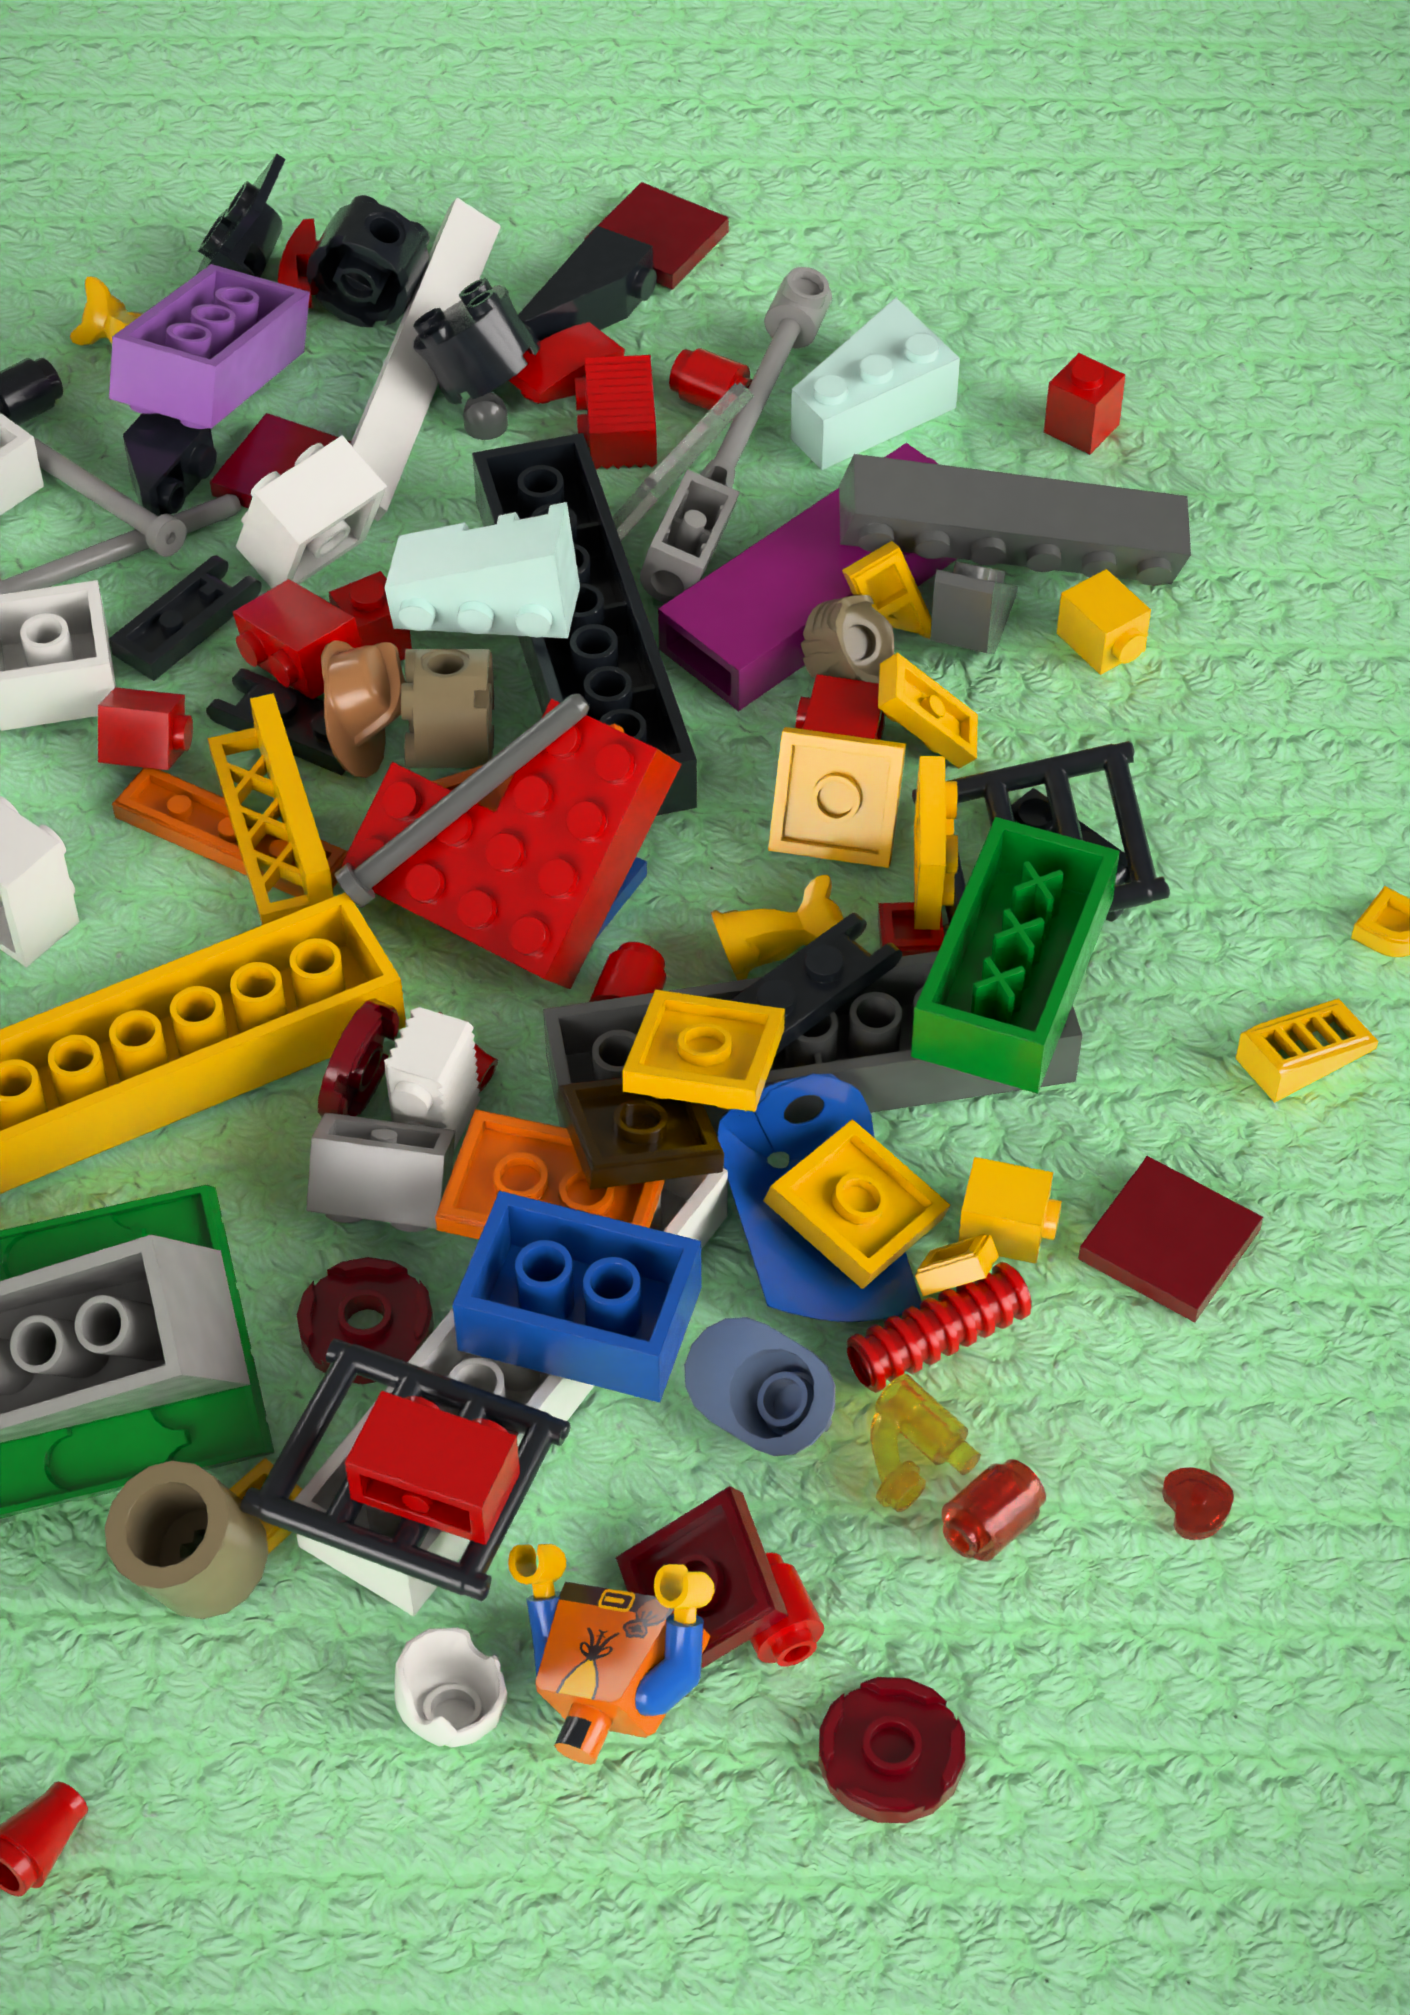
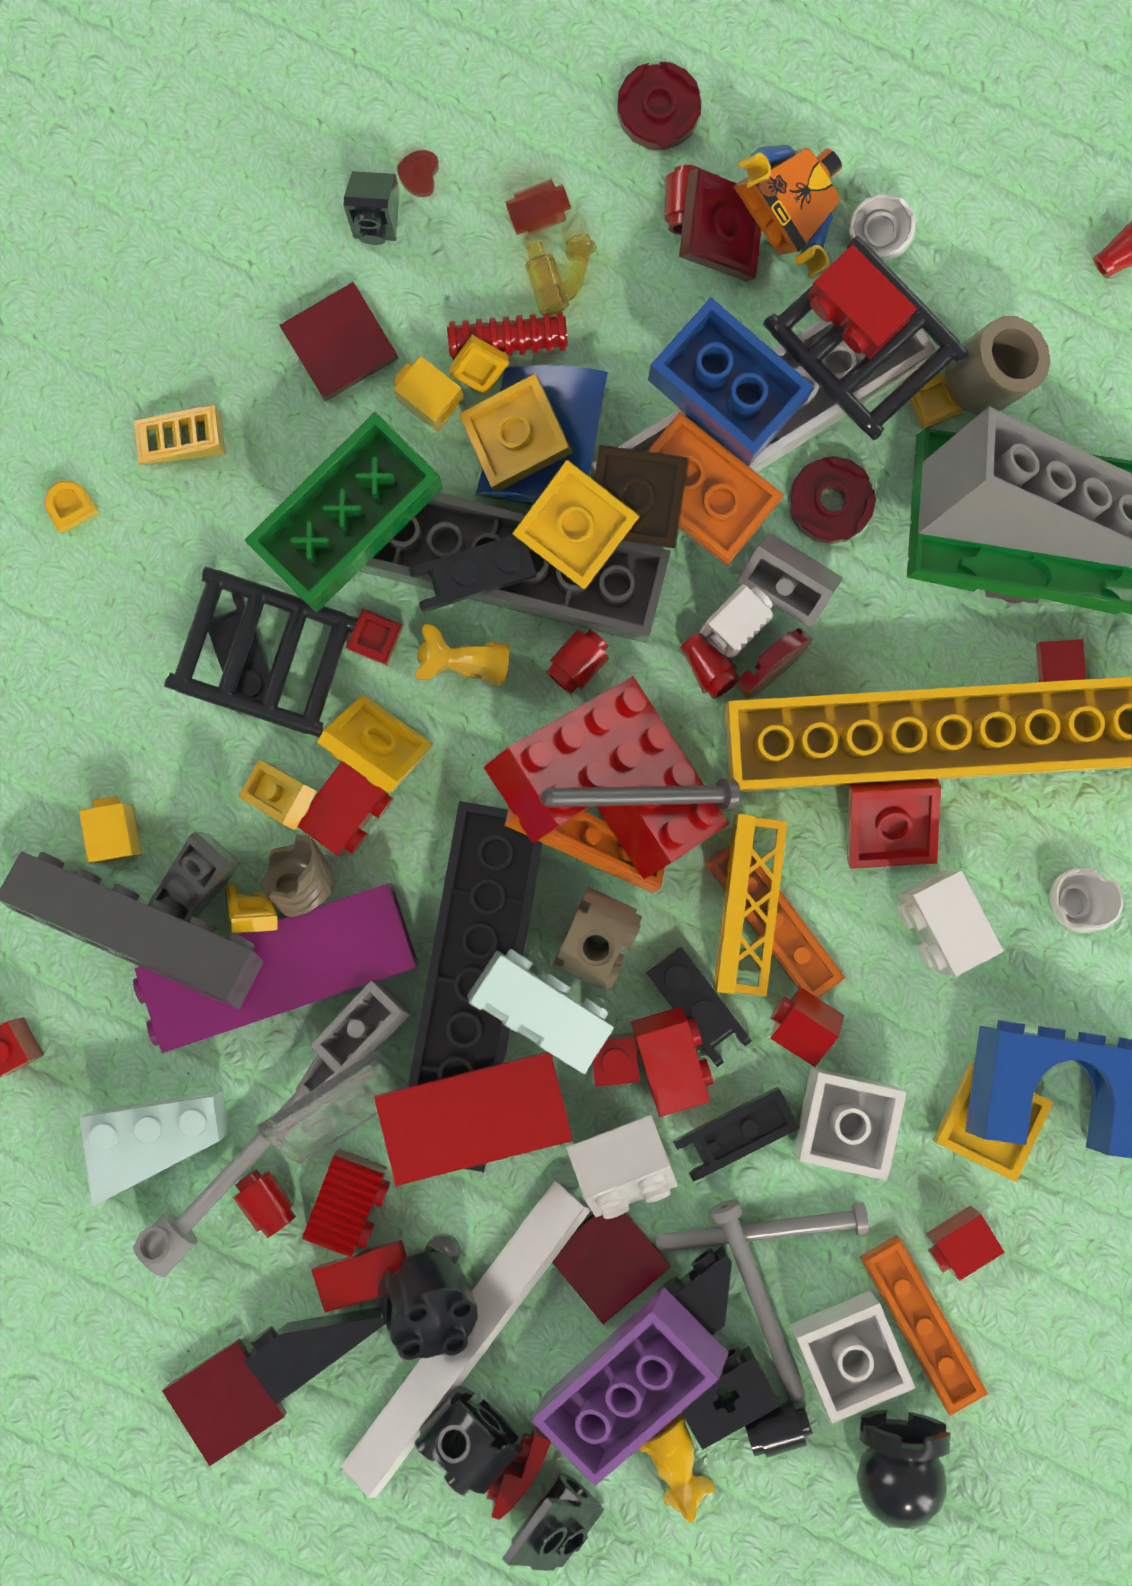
camera: 160 degrees left, 35 degrees up
(74, 403) = (751, 1398): none -> black brick
(112, 955) = (893, 823): none -> red plate
(360, 702) = (653, 976): medium nougat piece -> none
(522, 470) = (473, 1118): none -> red tile
(760, 1386) = (629, 323): sand blue piece -> none
(934, 842) = (336, 663): yellow plate -> none
(1229, 1392) = (372, 206): none -> slope

